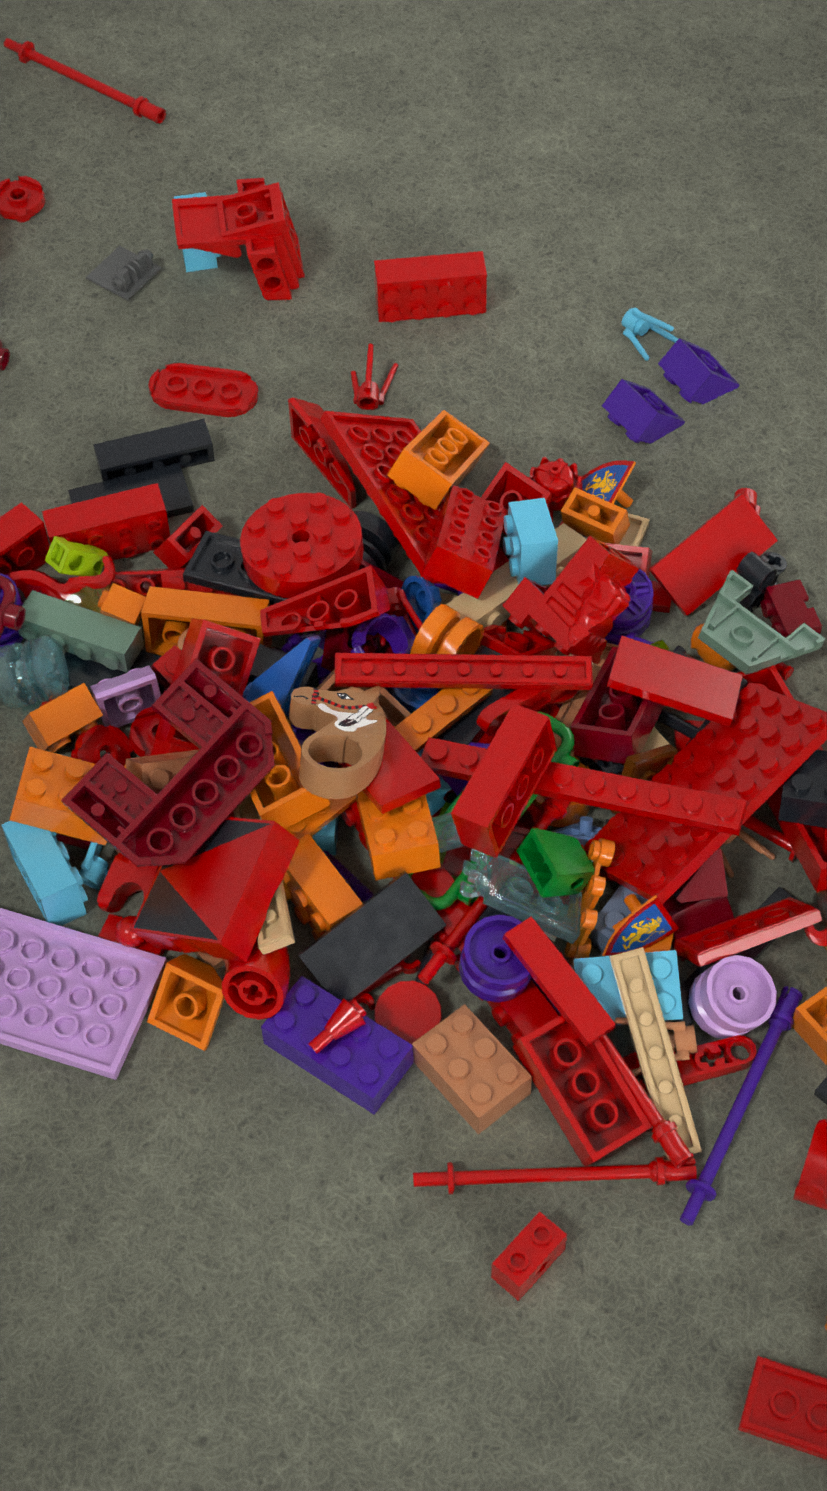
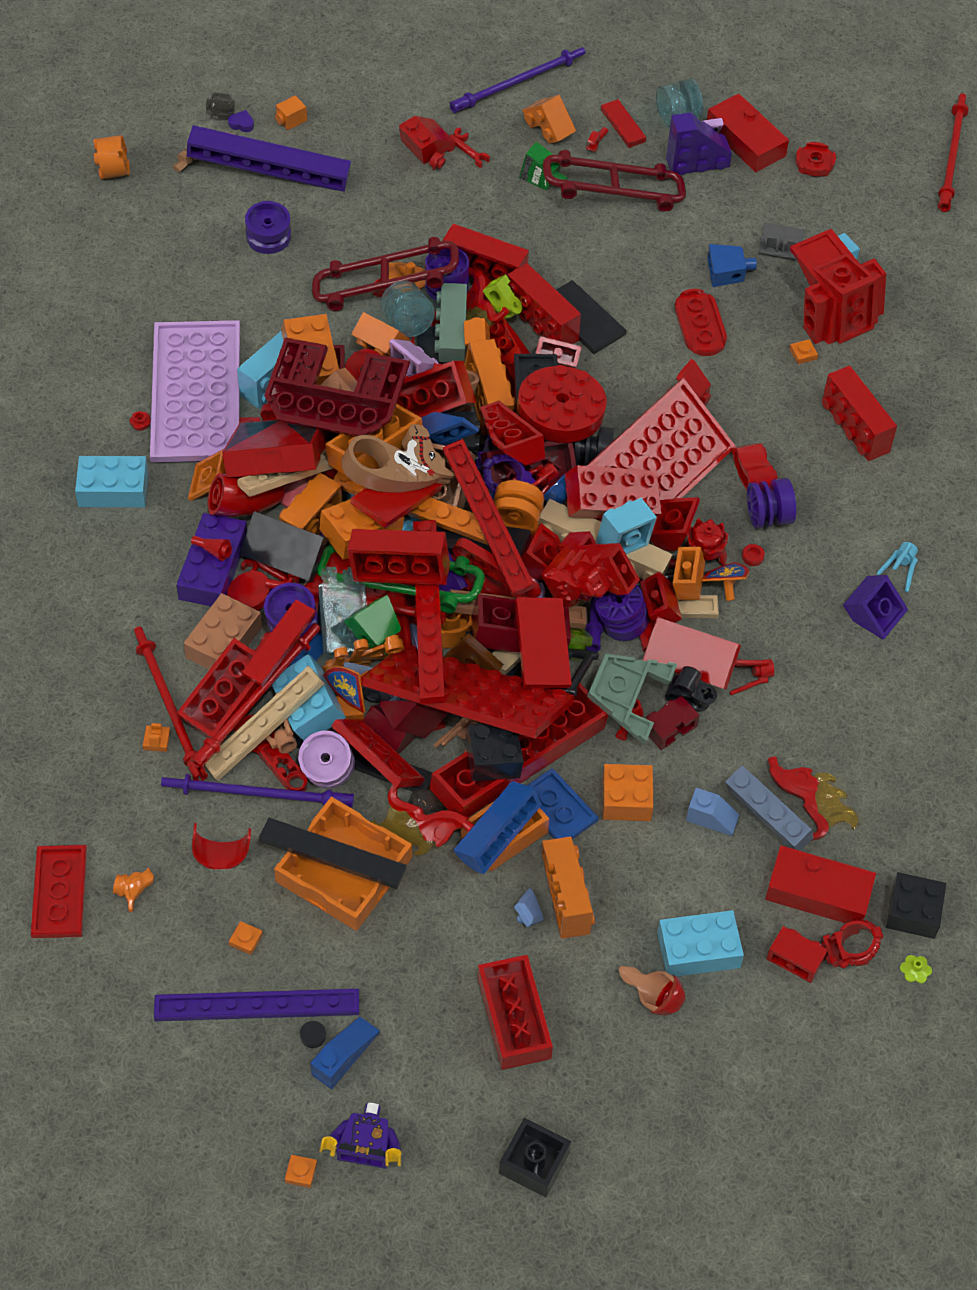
camera: 65 degrees right, 0 degrees up
(33, 1079) = (142, 424): none -> red plate
(133, 331) = (728, 264): none -> blue torso
(135, 1138) = (112, 481): none -> medium azure brick
(181, 443) = (628, 312): black brick -> none
(300, 311) = (803, 351): none -> orange plate
(368, 394) = (745, 413): red plant -> none
(438, 459) = (688, 461): orange brick -> none
(469, 406) = (753, 464): none -> red brick
(524, 408) = (771, 503): none -> dark purple wheel
(528, 1256) = (106, 702): red brick -> none
(578, 455) = (753, 555): none -> red tile
(605, 1210) = (156, 737): none -> orange tile
(640, 412) = (817, 581): dark purple slope -> none

